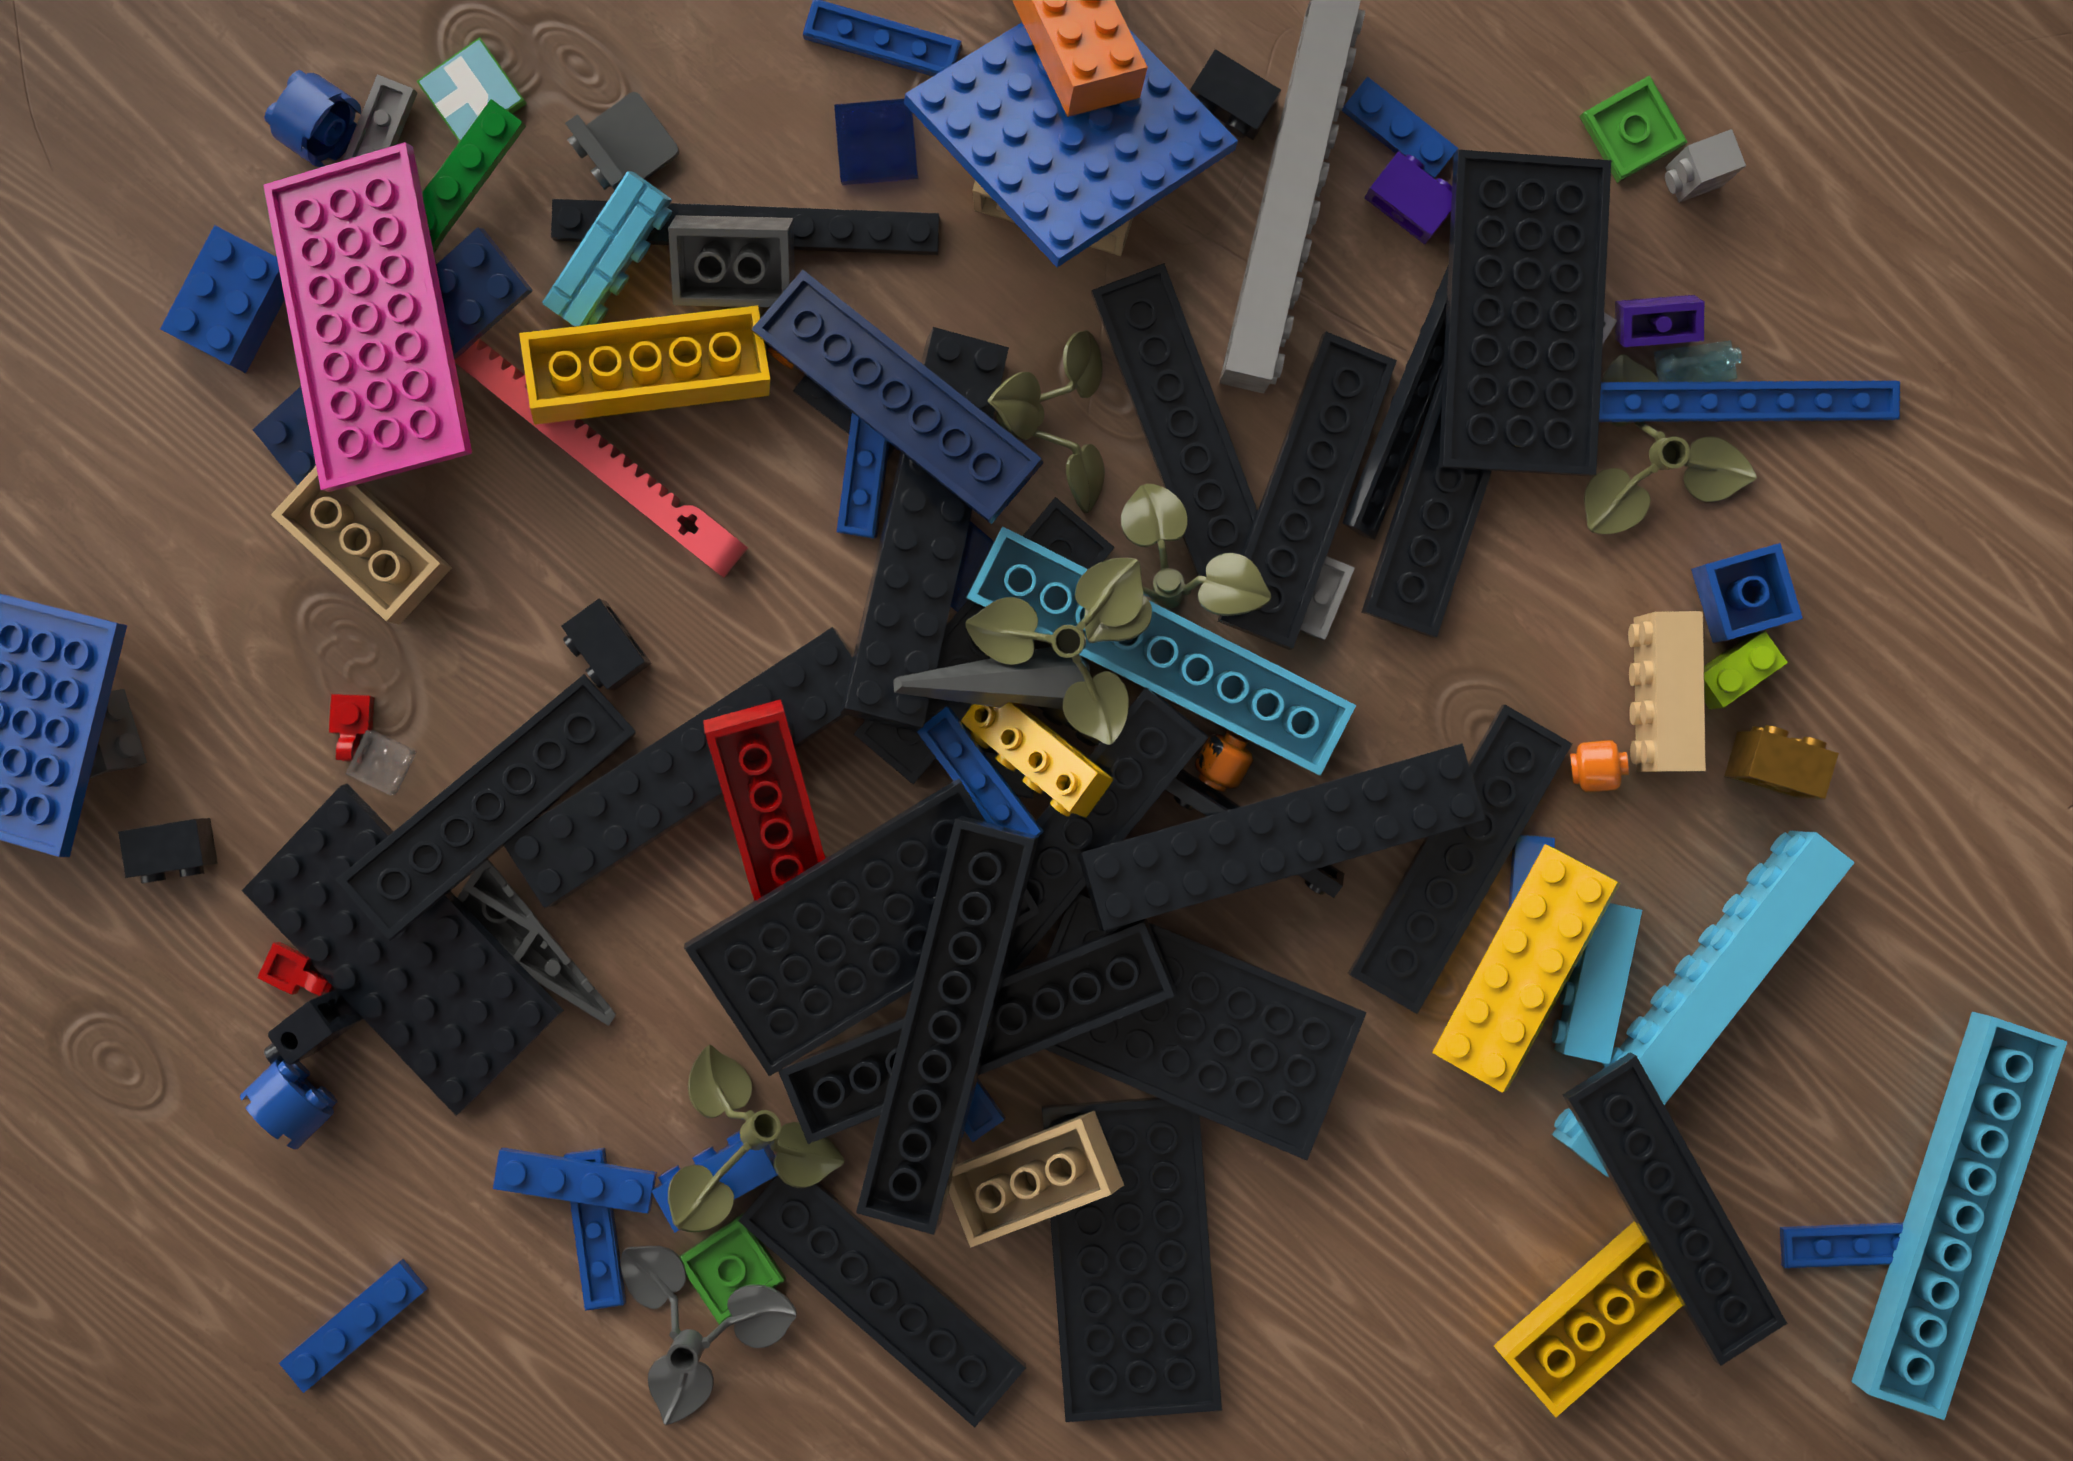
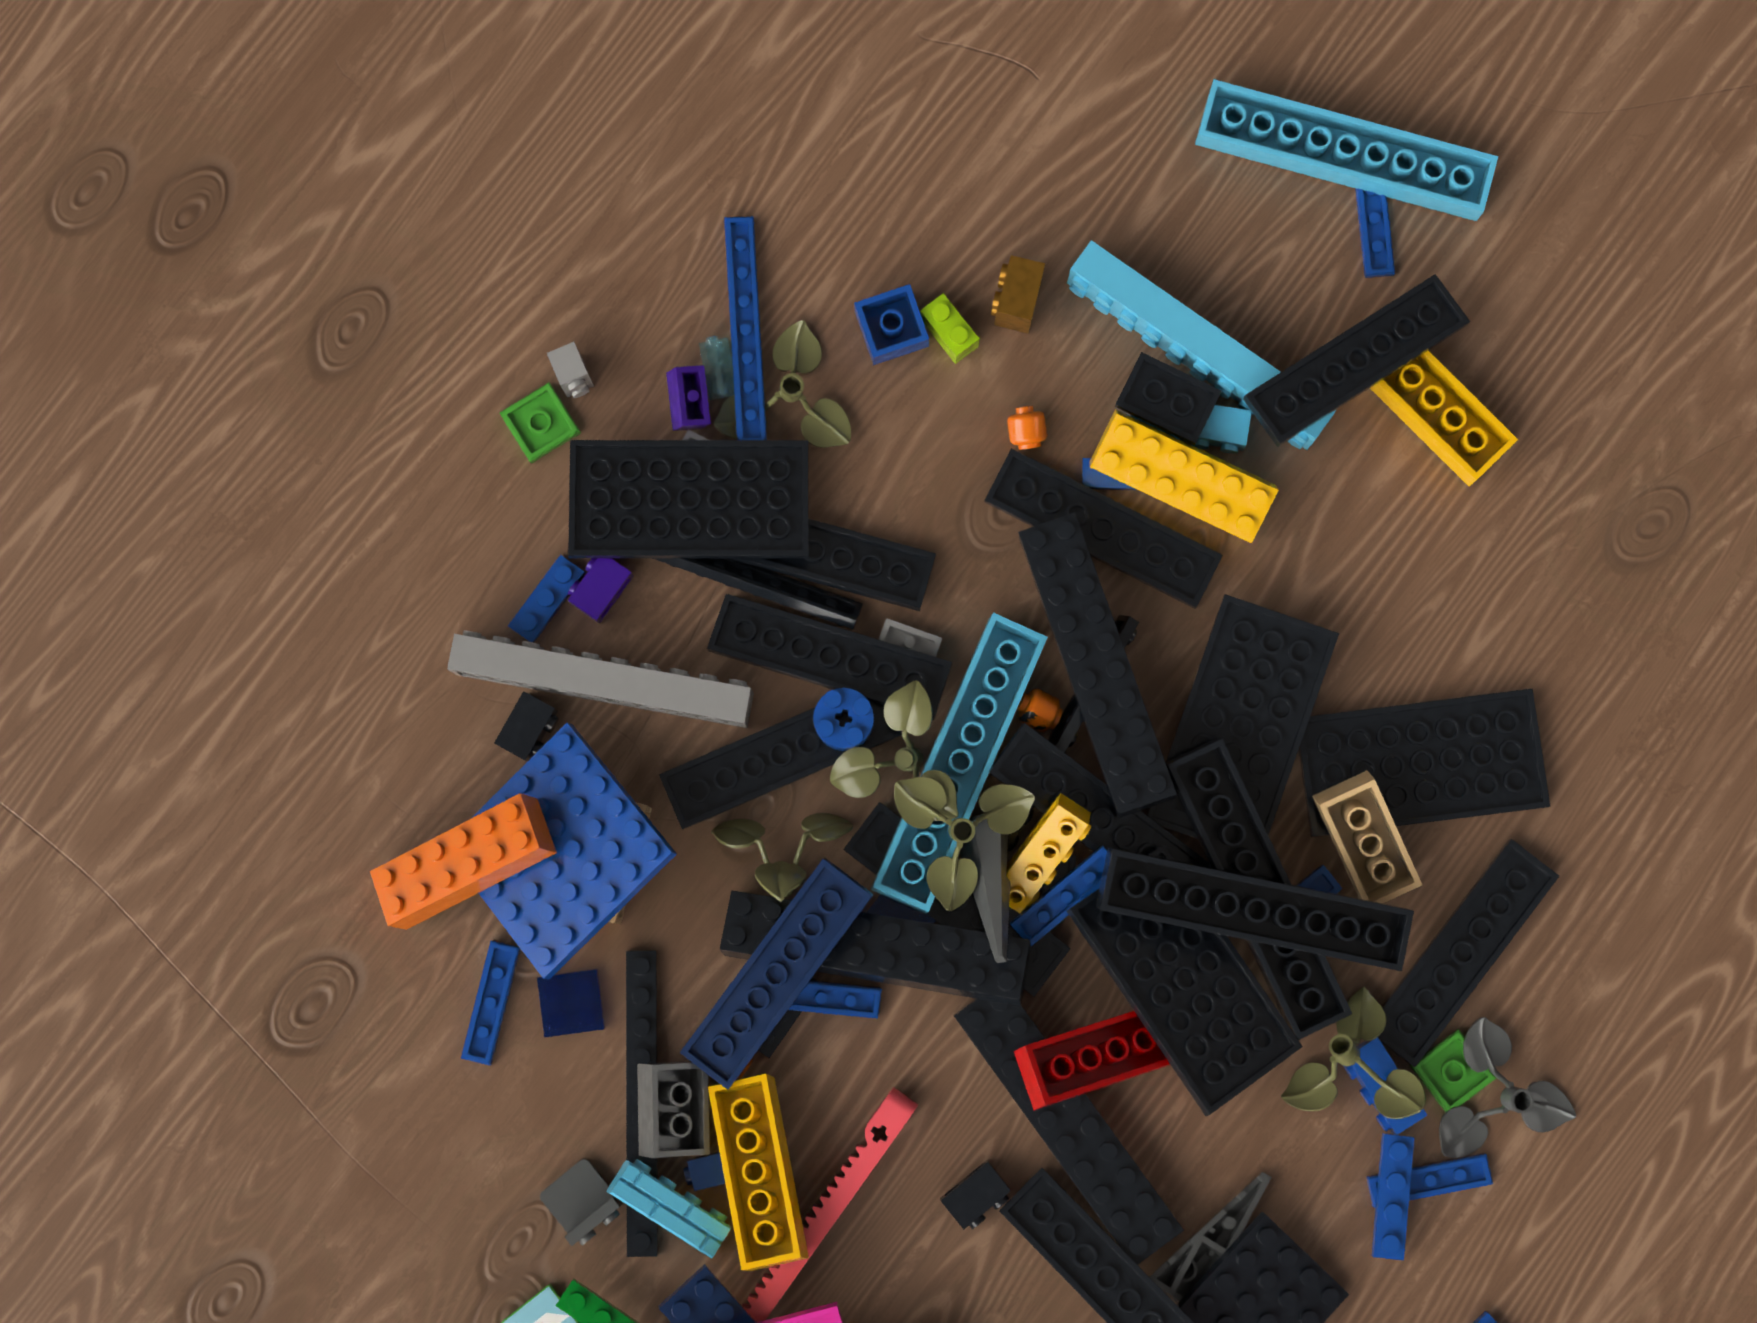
camera: 90 degrees left, 5 degrees down
(652, 297) = (704, 1171): none -> dark blue brick
(1244, 491) = (833, 705): none -> blue brick
(1632, 953) = (1168, 398): none -> black plate
(1668, 692) = (970, 380): tan brick -> none

